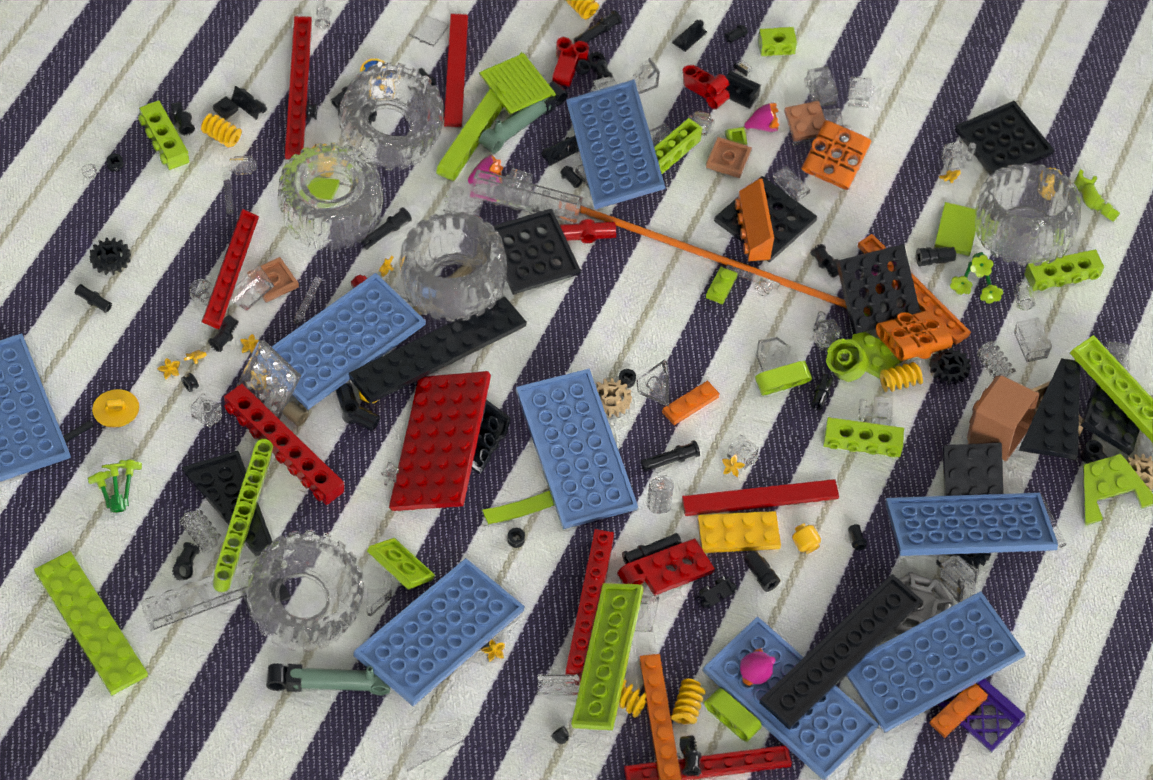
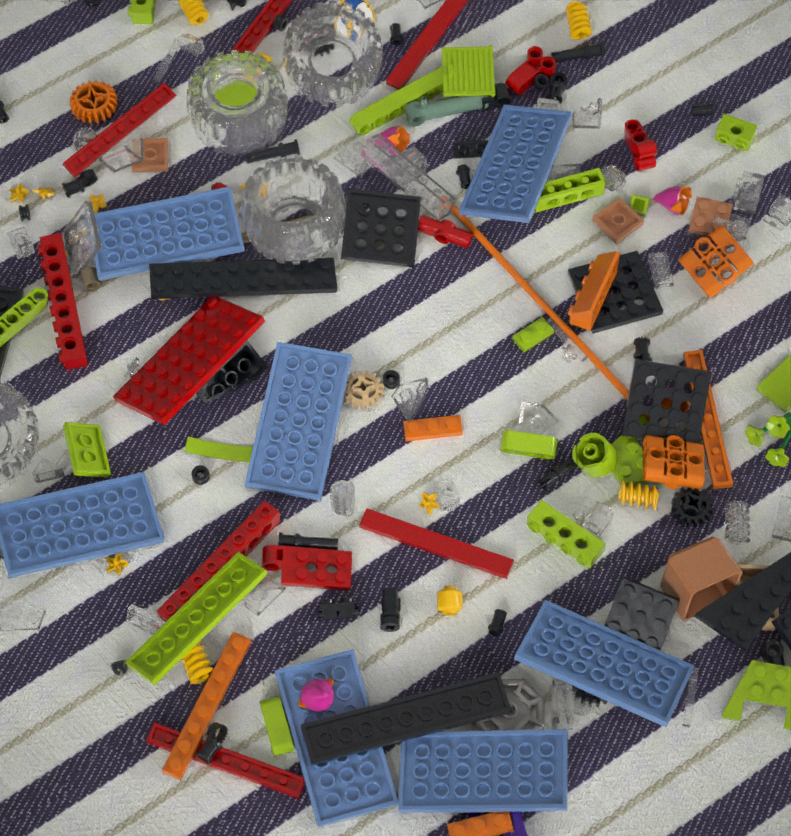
camera: 35 degrees right, 5 degrees up
(110, 256) = (33, 76): black gear -> none
(184, 259) = (82, 101): none -> orange gear
(307, 300) = (168, 185): clear bar -> none
(359, 415) = (141, 305): black piece -> none
(679, 454) = (389, 469): black pin -> none
(688, 702) = (243, 694): yellow piece -> none
(690, 36) = (659, 94): black hinge -> none
(739, 532) = (396, 565): yellow plate -> none
(742, 89) = (671, 163): black hinge -> none
(743, 67) = (689, 143): piece -> none
(825, 331) = (595, 419): clear brick -> none
(835, 117) = (737, 228): none -> clear plate
(938, 255) = (750, 397): black axle -> none

